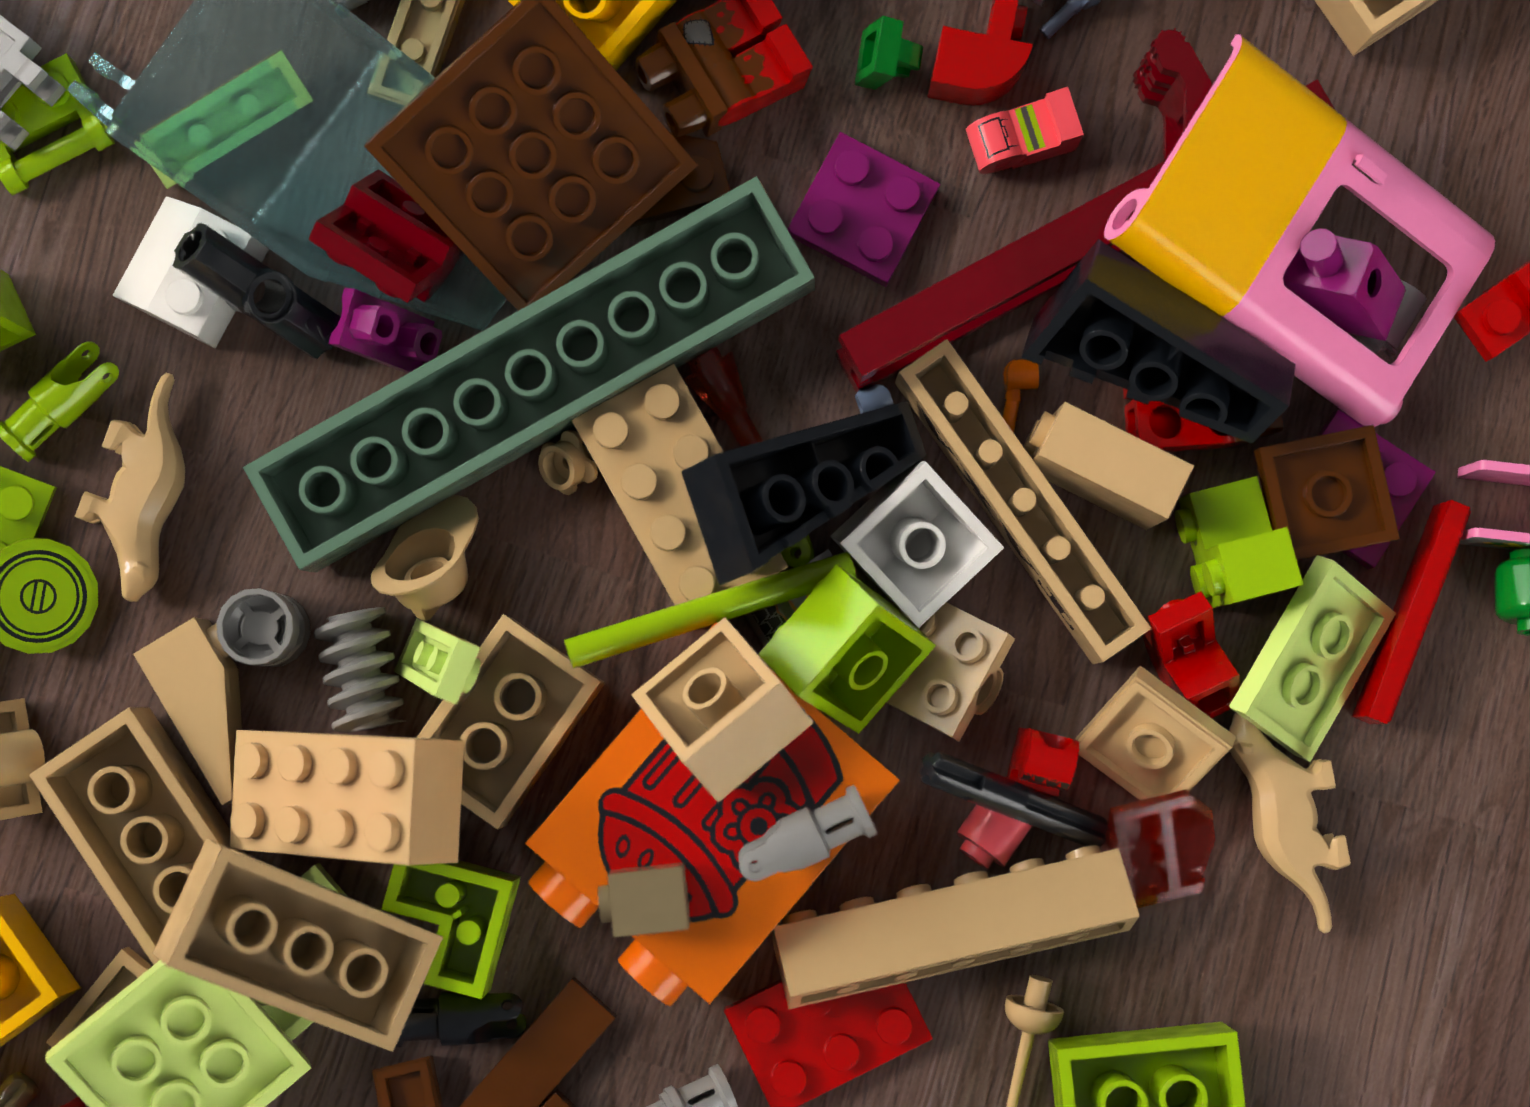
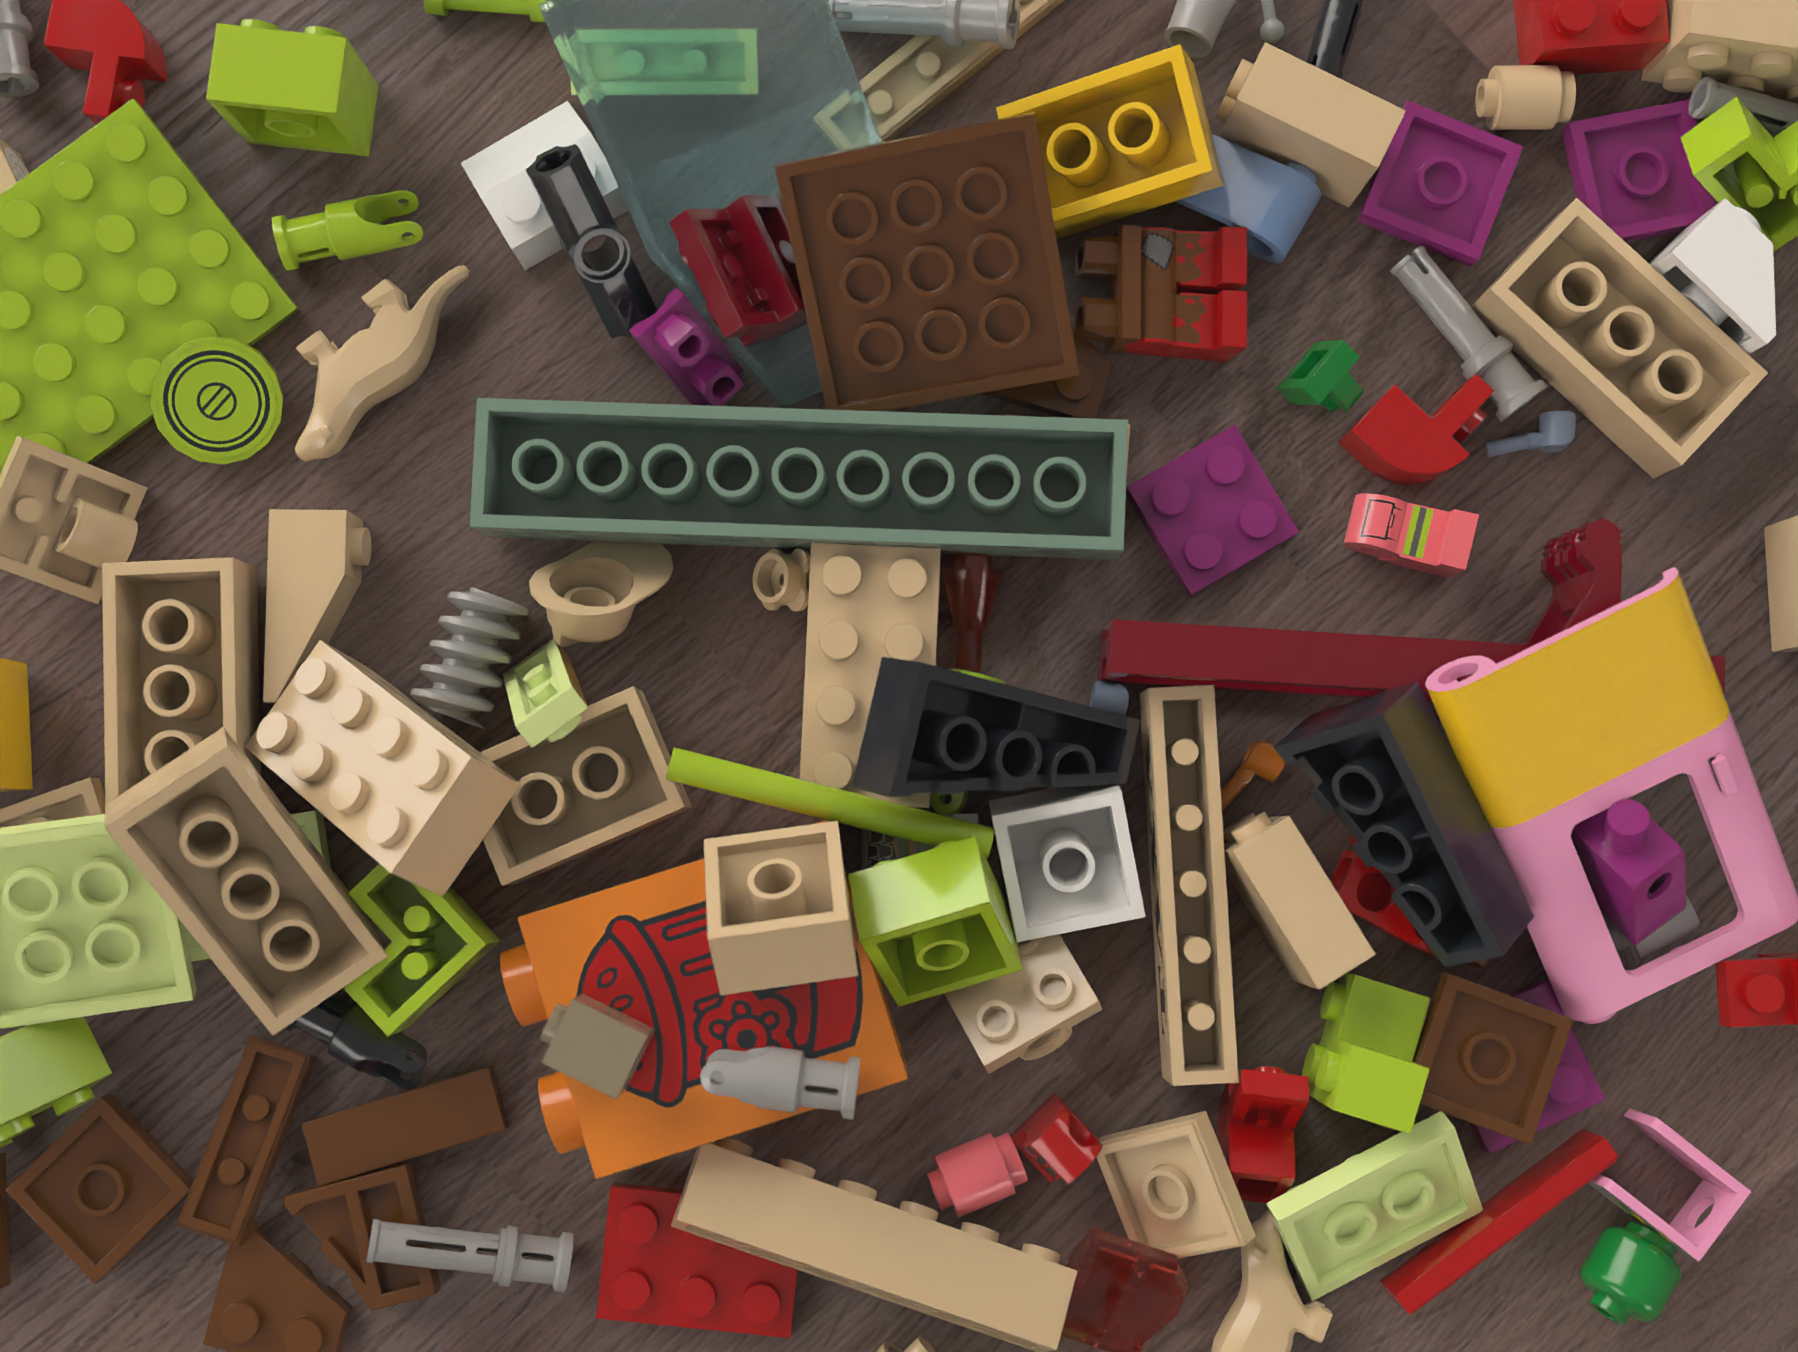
camera: 30 degrees right, 0 degrees up
(263, 628) = (404, 559): light grey wheel -> none
(1012, 799) = (1004, 1162): black axle -> none

